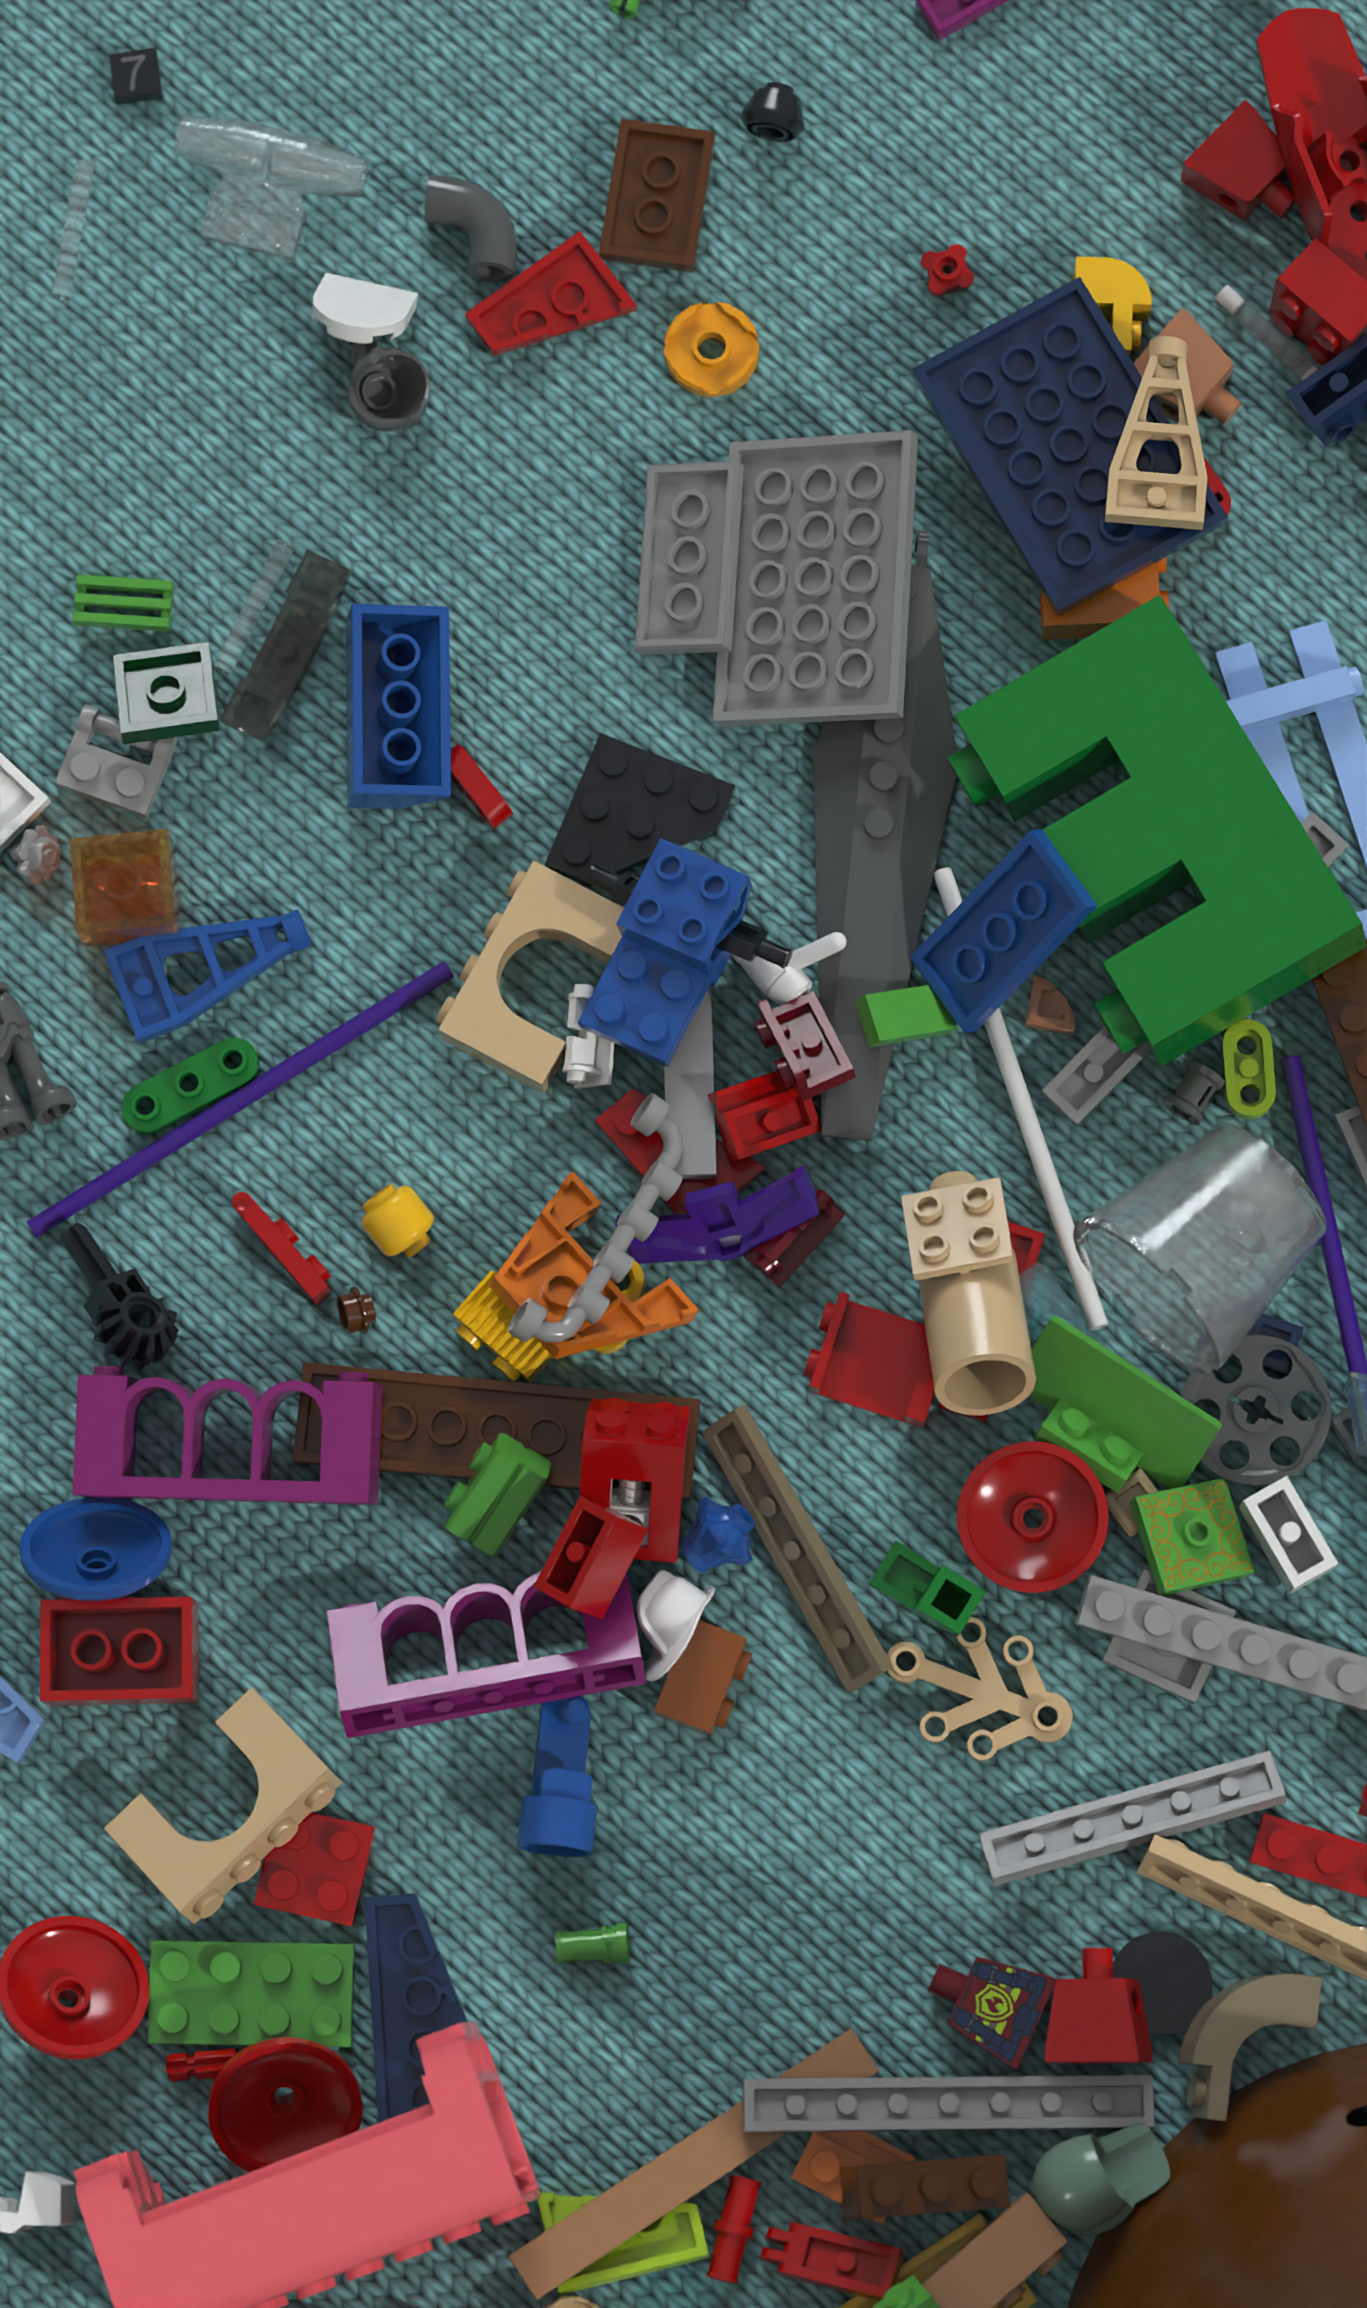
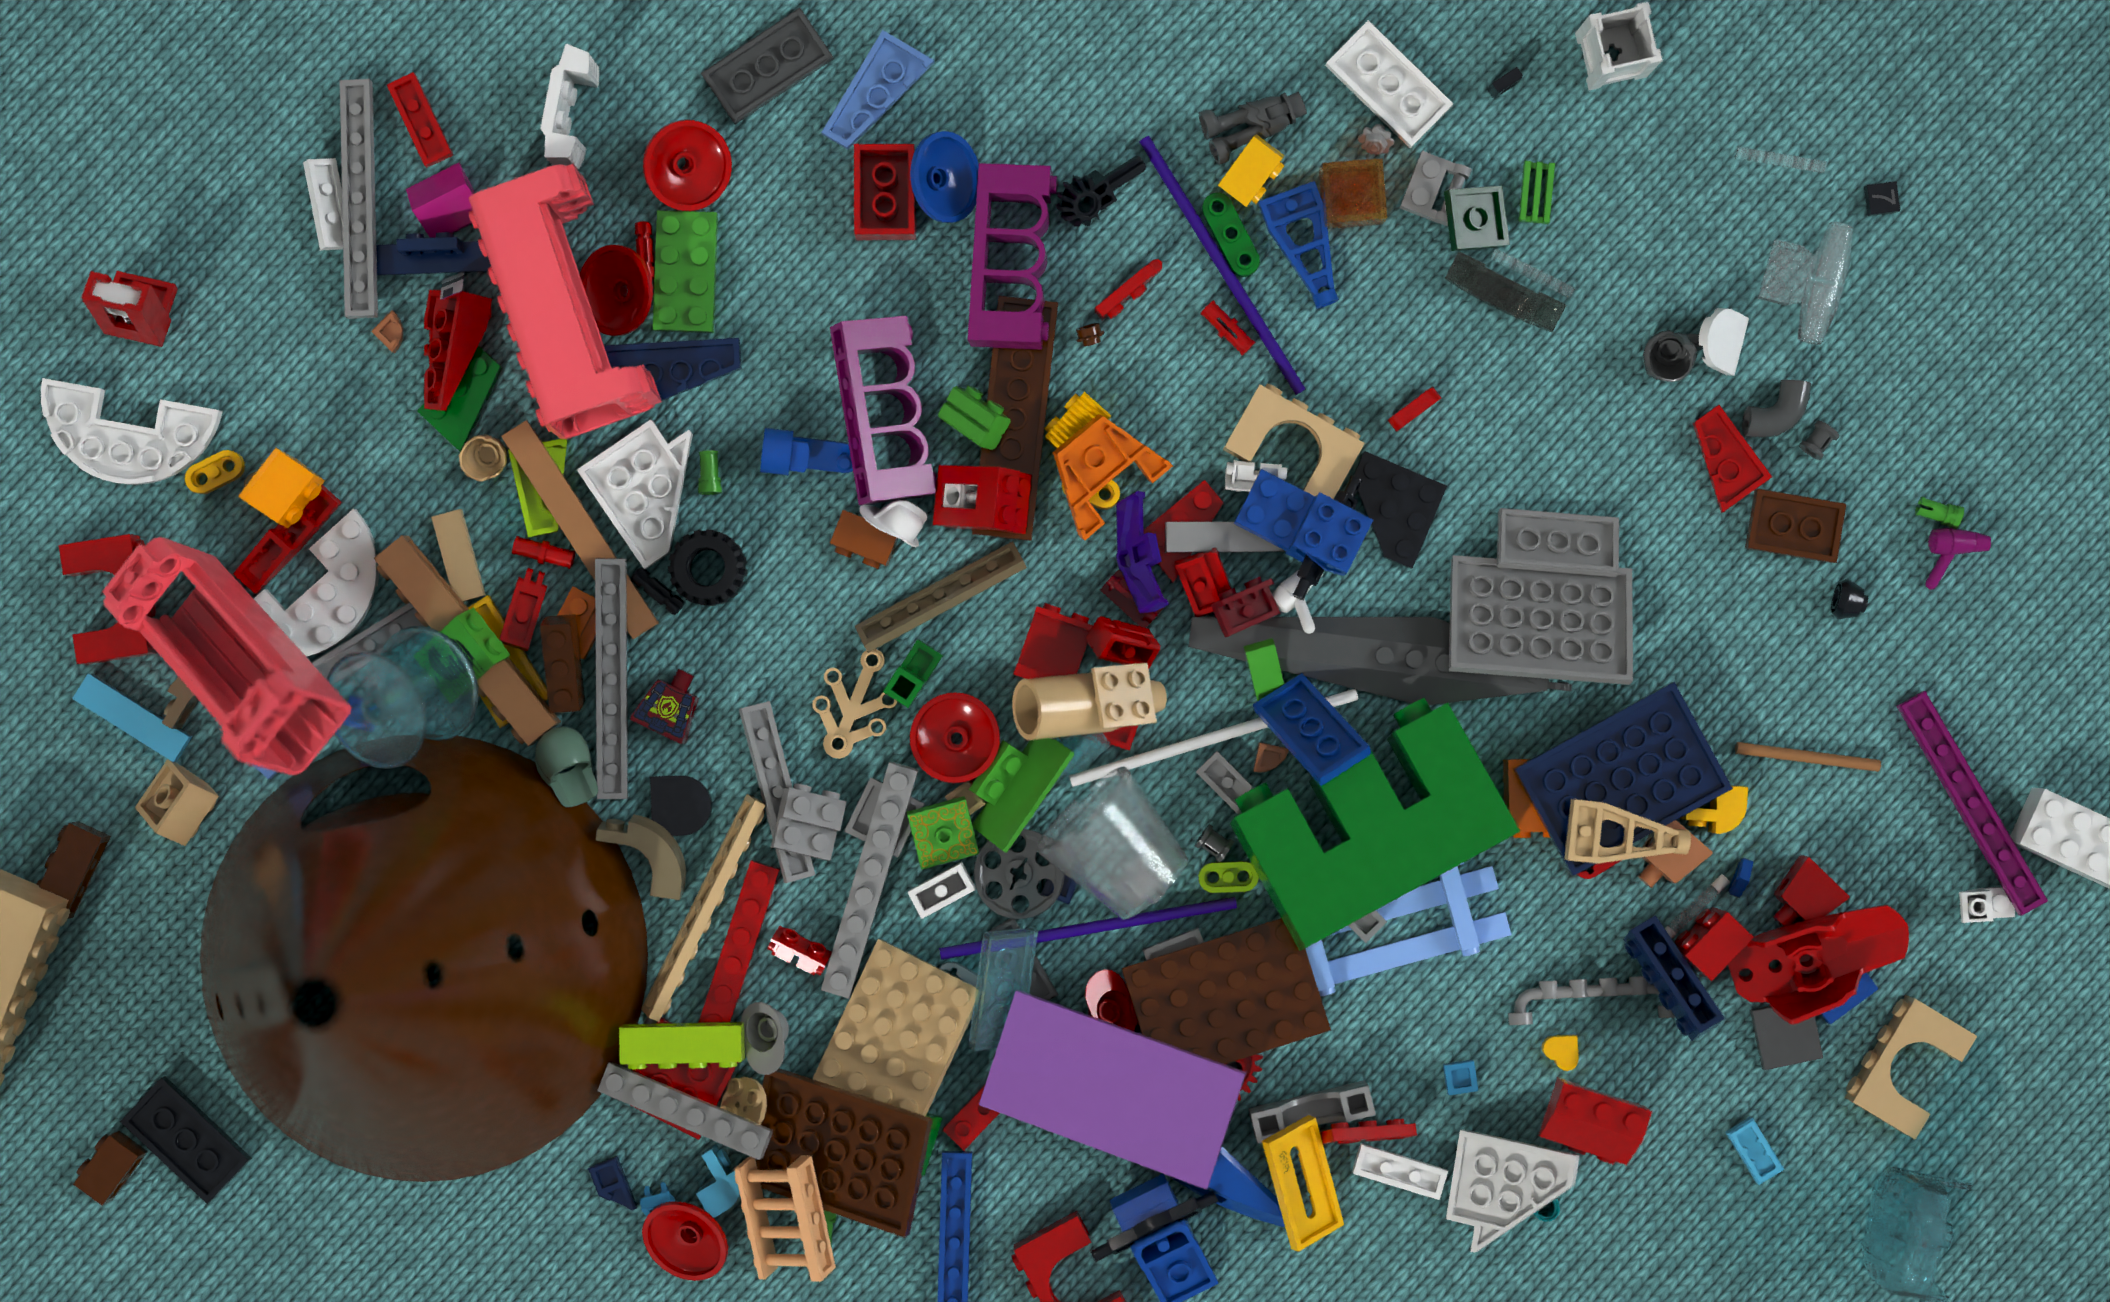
camera: 85 degrees right, 10 degrees up
(88, 1049) = (1251, 171): none -> yellow brick
(289, 1788) = (803, 293): tan arch -> none
(318, 1870) = (759, 309): red plate -> none
(368, 1062) = (1212, 313): none -> red pin
(397, 705) = (1465, 361): blue slope -> none
(397, 1221) = (1143, 359): yellow head -> none
(520, 162) = (1819, 440): none -> dark grey bush
(590, 1557) = (929, 471): red brick -> none
(621, 2061) = (641, 488): none -> white wing
(633, 1222) = (1135, 500): light grey bar -> none
(717, 375) = (1676, 558): light orange tile -> none
(718, 1536) = (948, 550): blue rock -> none
(795, 2030) = (657, 591): none -> black axle
(801, 1941) = (681, 567): none -> black tyre
(867, 1242) = (1122, 642): none -> red brick
(943, 283) = (1735, 702): red plate -> none
(1023, 171) = (1808, 756): none -> medium nougat axle
(1098, 2016) = (659, 768): red torso -> none
(1181, 1761) = (808, 822): none -> light grey plate
(1220, 266) = (1741, 877): none -> blue tile

